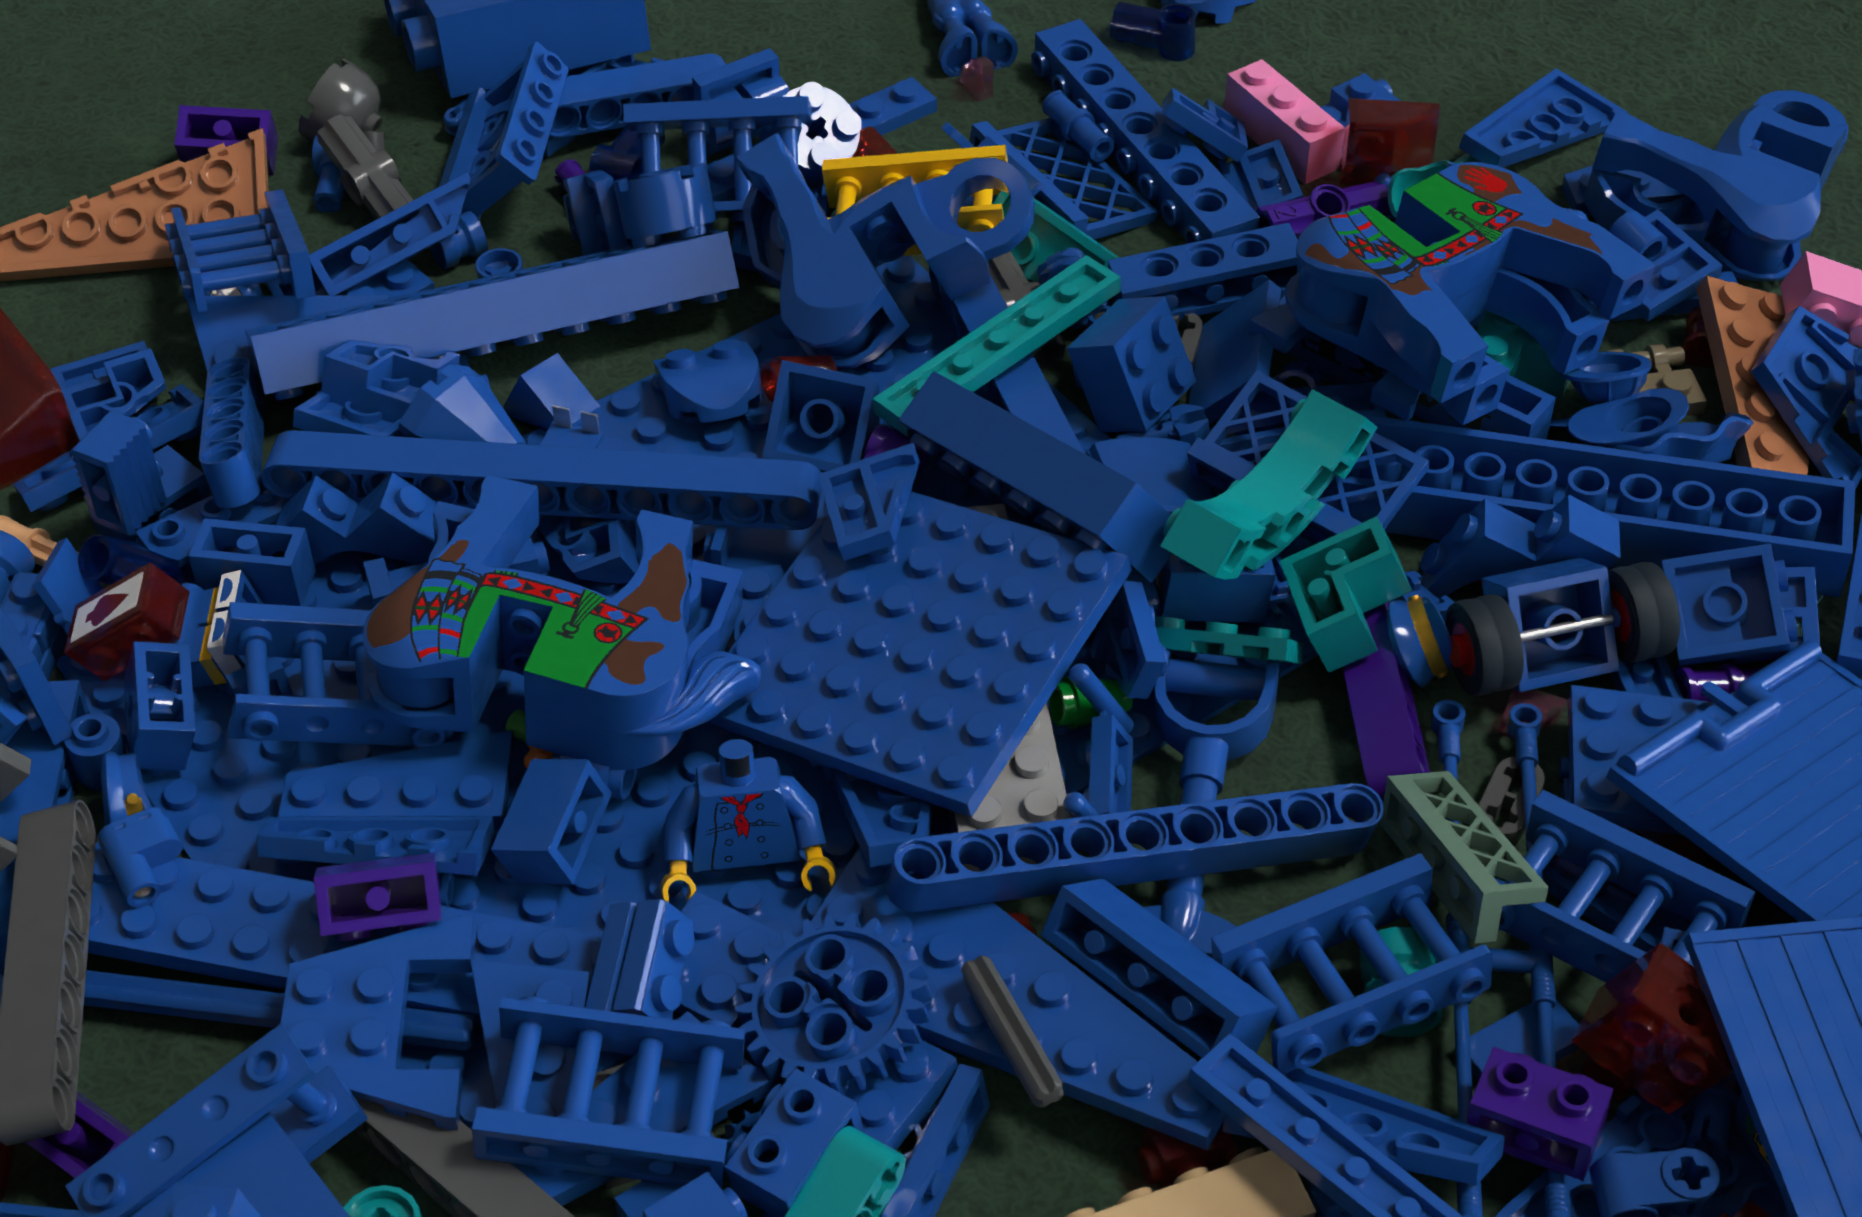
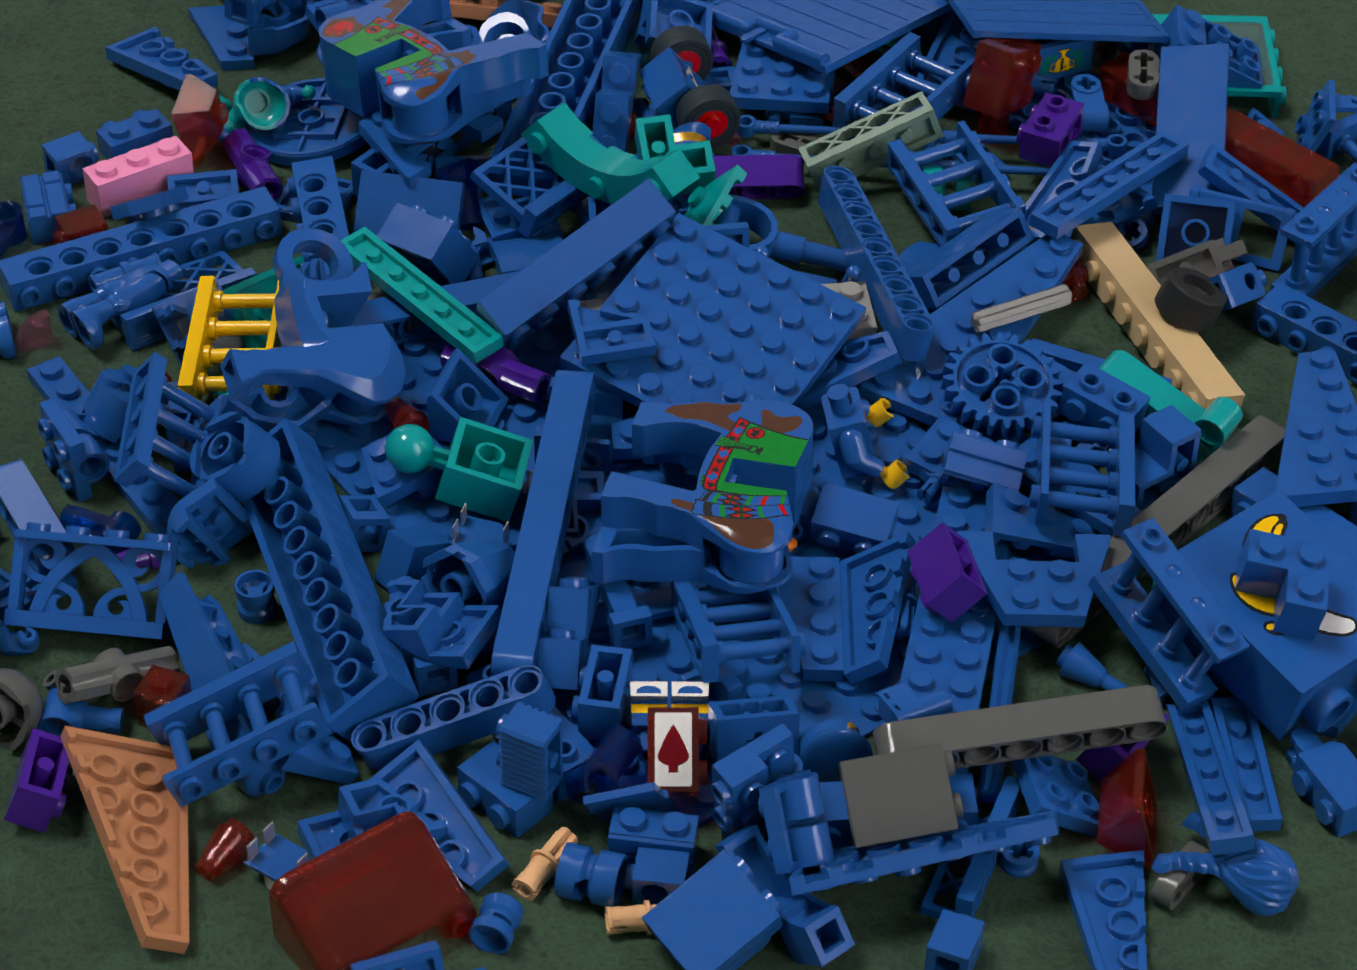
camera: 90 degrees left, 5 degrees down
(84, 328) = (274, 856): none -> blue piece
(116, 290) = (224, 849): none -> clear red cone
(335, 214) = (158, 689): none -> clear red brick
(620, 354) = (367, 521): none -> blue brick
(674, 408) = (479, 468): none -> teal brick
(1018, 118) = (140, 287): none -> blue piece
(1164, 73) = (79, 224): none -> clear red brick
(1206, 55) = (43, 200): none -> blue brick
(1313, 64) = (69, 156): none -> blue brick

